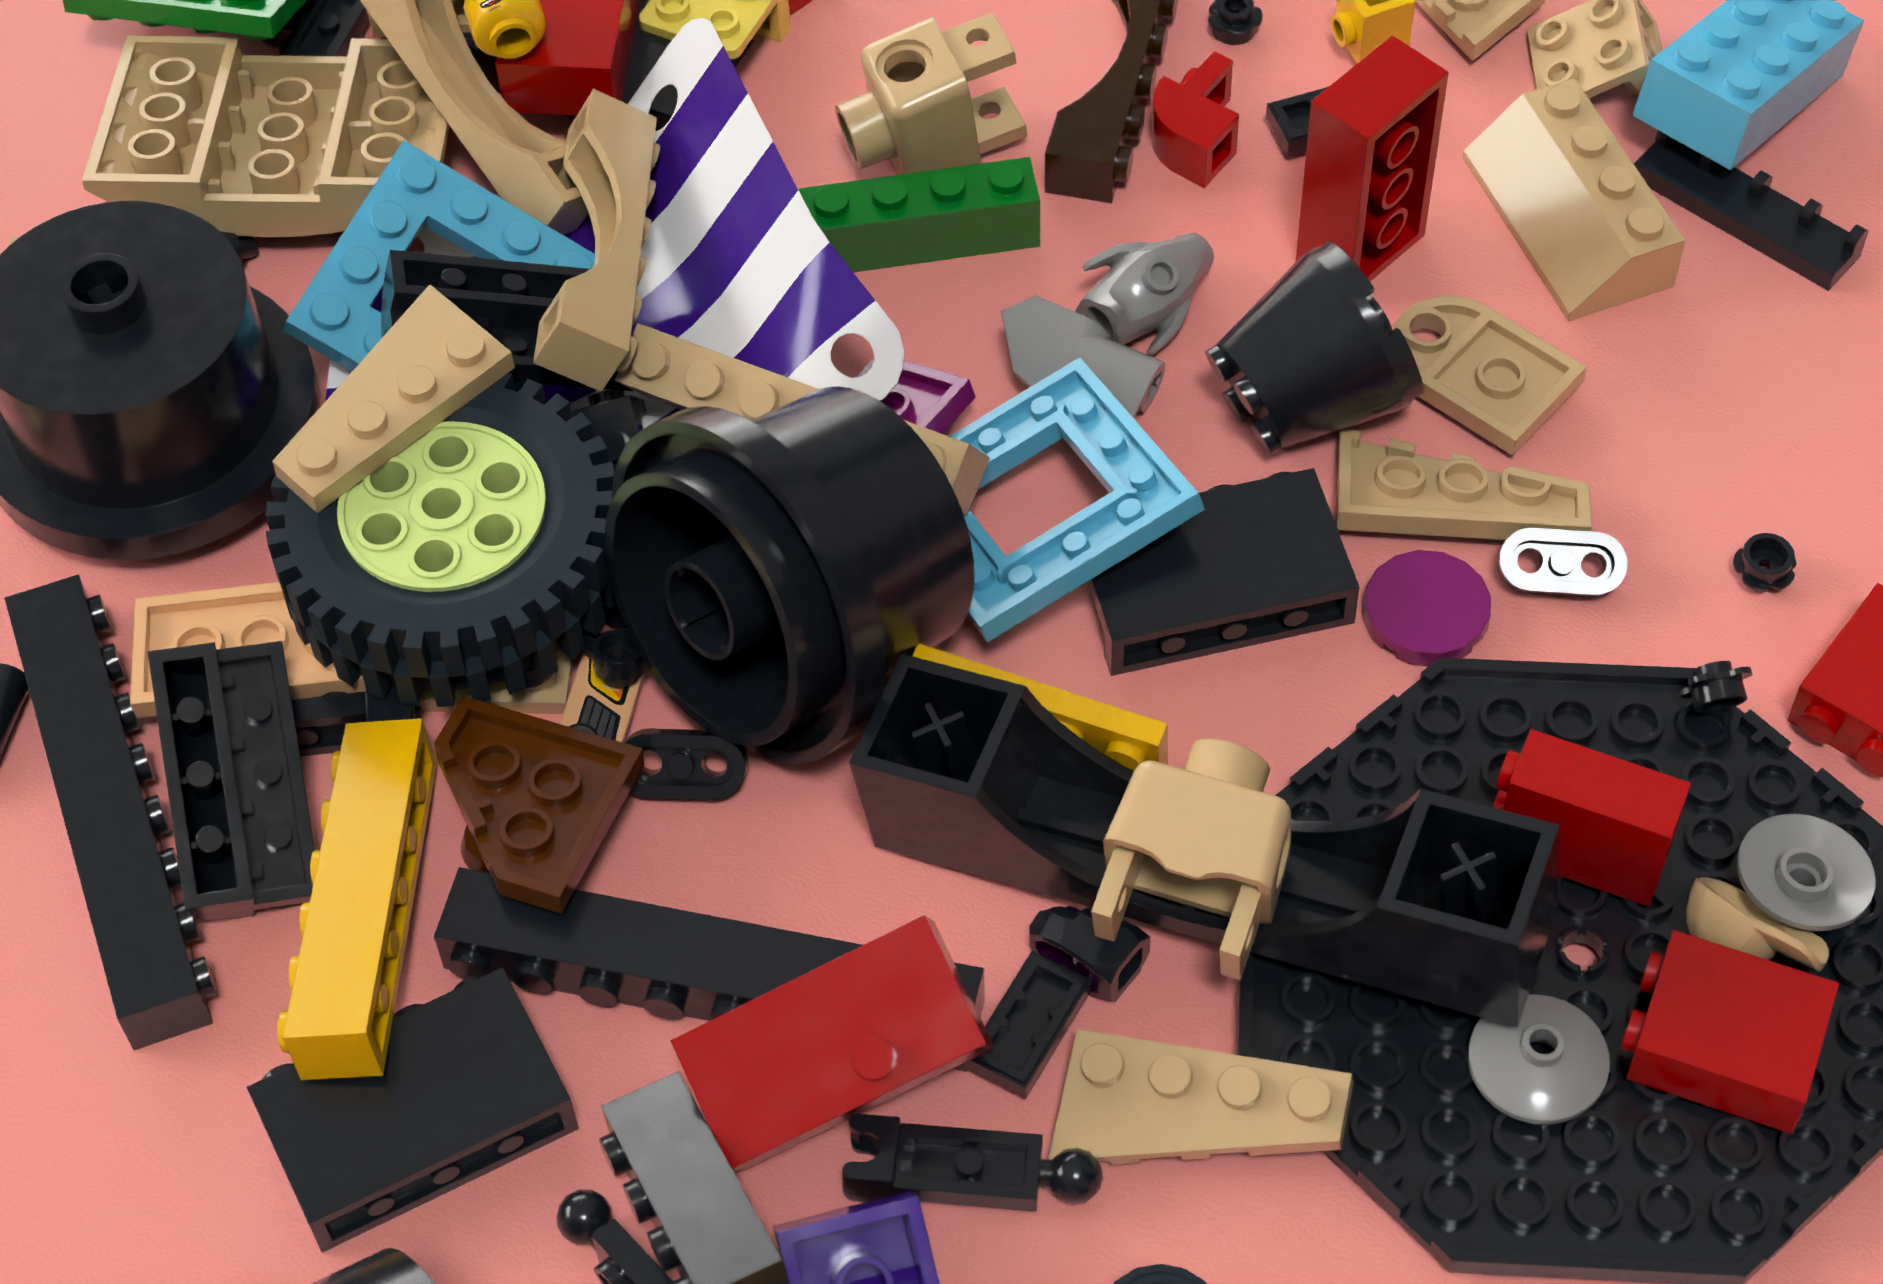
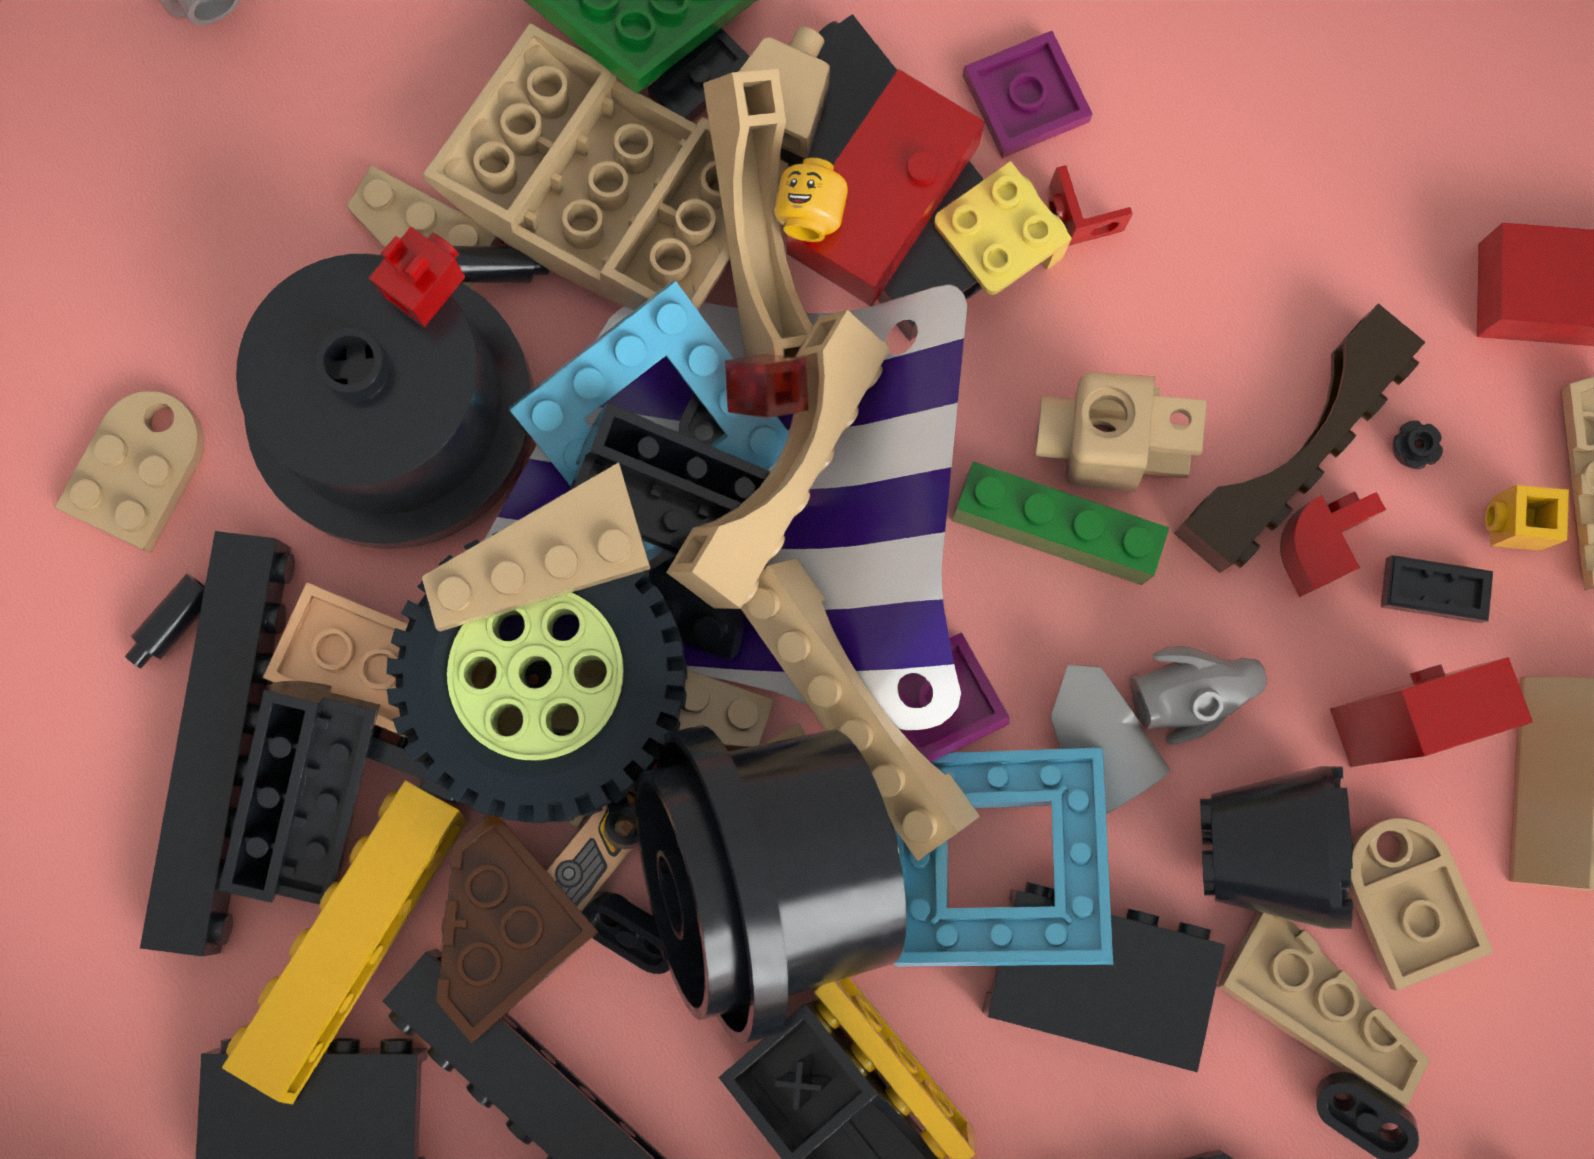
camera: 25 degrees right, 25 degrees up
(135, 188) = (418, 274): none -> red brick
(546, 185) = (766, 385): none -> clear red brick
(1427, 606) = (1245, 1090): magenta tile -> none

